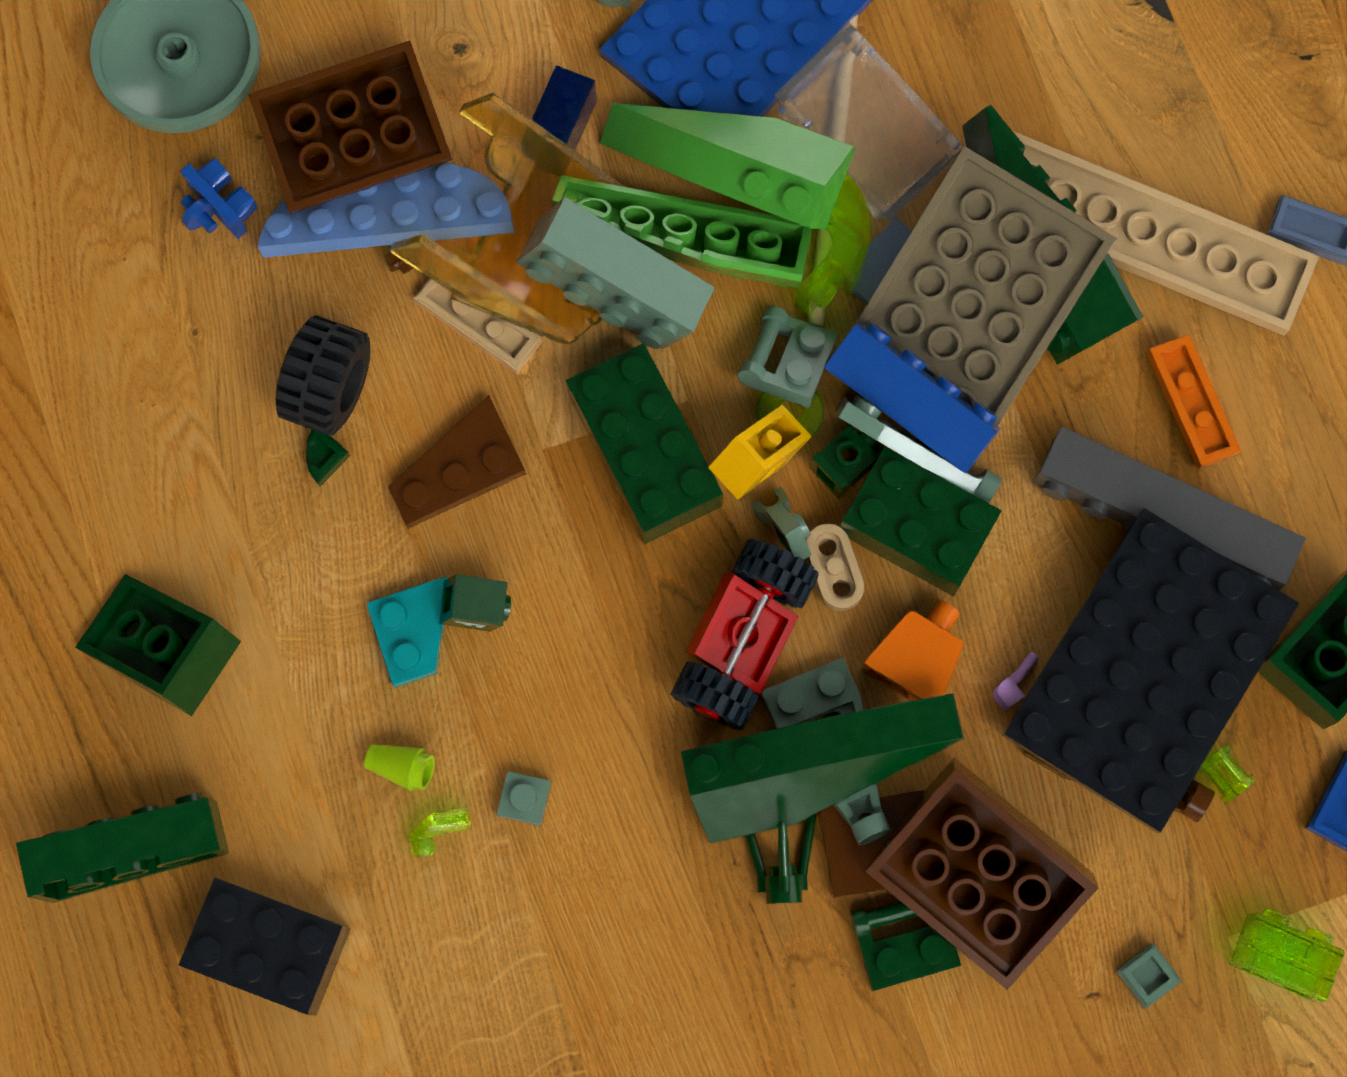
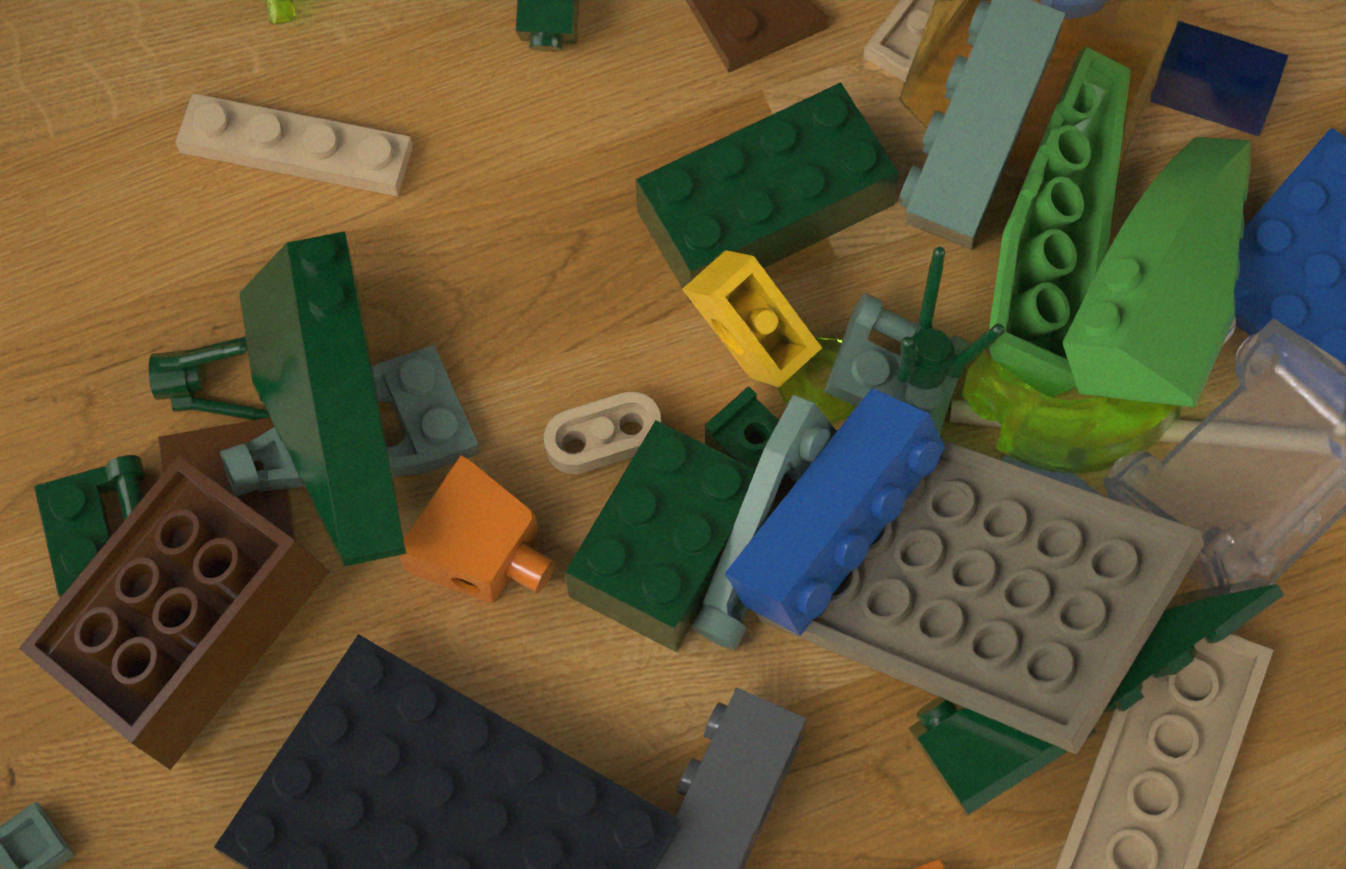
camera: 90 degrees right, 10 degrees down
(524, 798) = (305, 82): sand green plate -> none
(580, 806) = (294, 144): none -> tan plate
(743, 633) = (503, 310): plate -> none
(788, 528) = (651, 360): sand green plate -> none
(793, 327) = (929, 352): none -> dark green plant
(1008, 692) = (432, 660): lavender hand -> none

